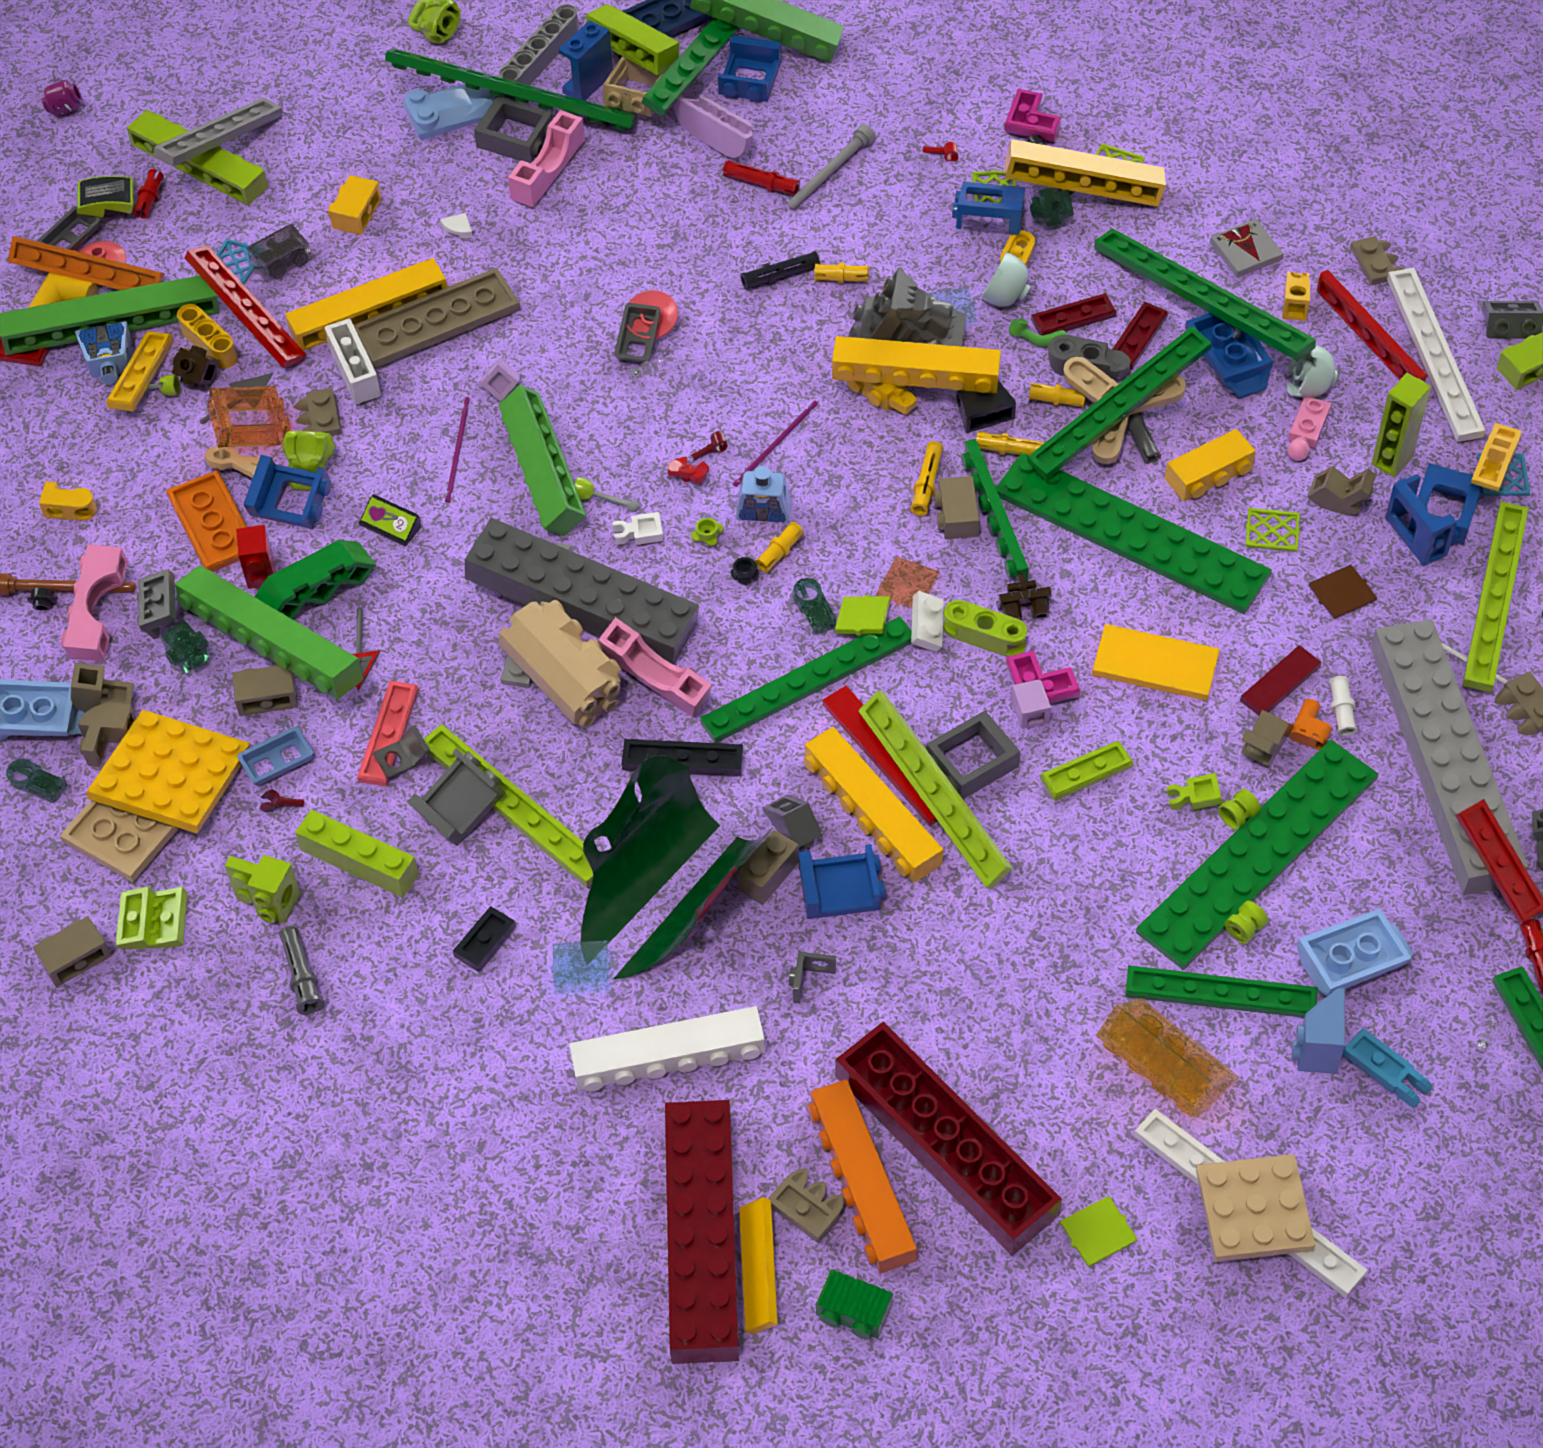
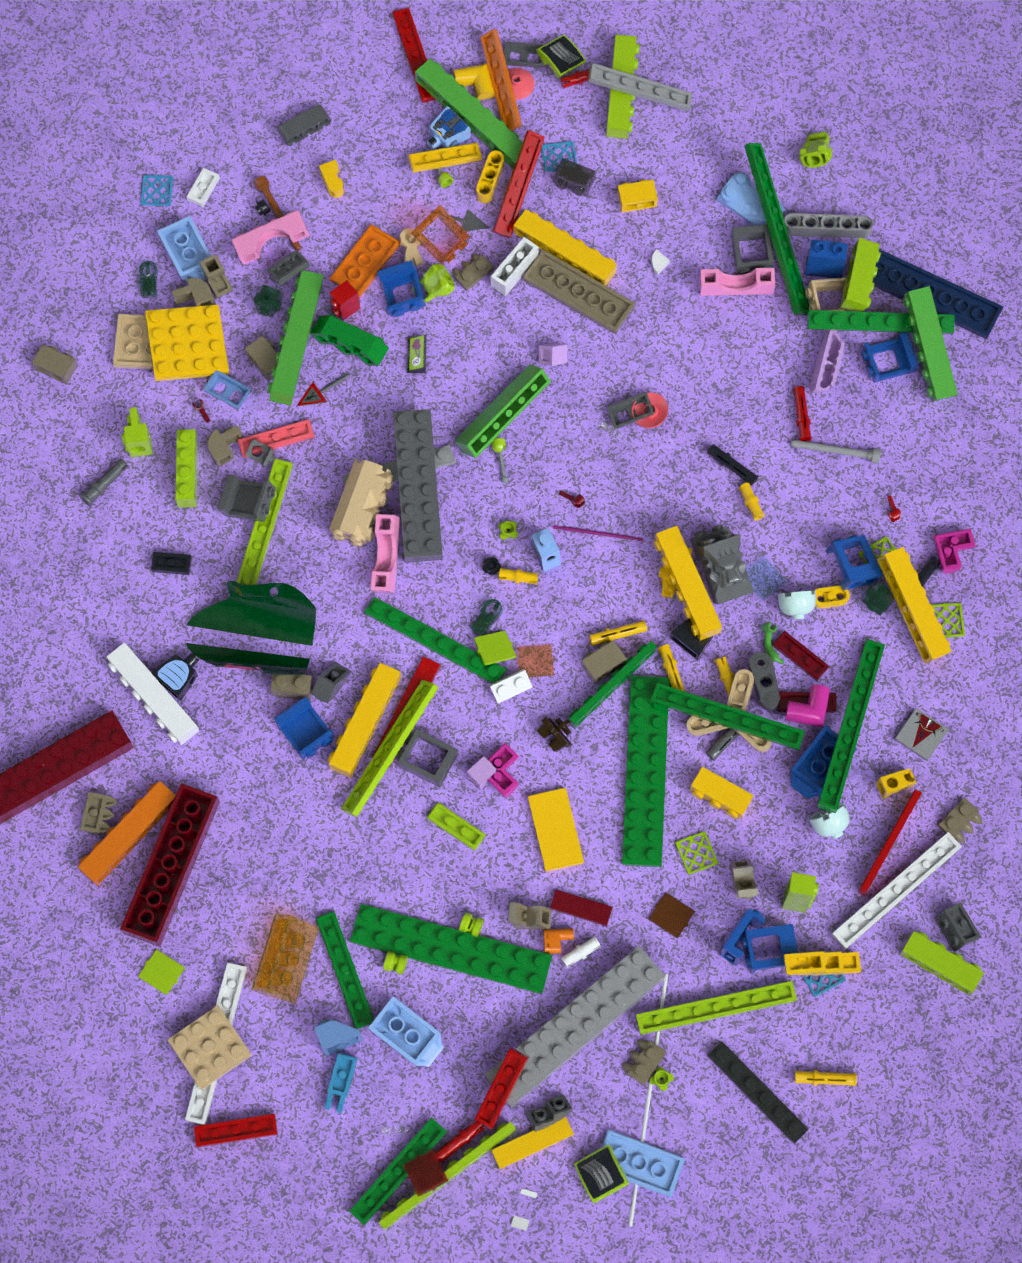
camera: 60 degrees right, 15 degrees up
(151, 918) = (97, 390): lime slope -> none
(195, 366) = (462, 185): dark brown brick -> none
(353, 801) = (219, 445): none -> dark tan brick
(457, 450) = (491, 360): magenta piece -> none
(580, 967) = (181, 622): clear light blue piece -> none
(644, 529) = (488, 493): white plate -> none
(659, 999) = (177, 674): none -> torso
(680, 468) = (545, 491): red piece -> none
(698, 756) = (342, 601): black plate -> none
(758, 1266) = (50, 807): yellow tile -> none
(804, 963) = (232, 737): dark grey bracket -> none
(854, 1305) = (51, 867): green brick -> none
(968, 624) = (522, 711): lime piece -> none
(1155, 327) = (814, 711): none -> dark pink brick
(1200, 792) = (472, 897): lime plate -> none
(1307, 427) = (789, 838): bright pink plate -> none
(1394, 1235) = (235, 1130): none -> red plate

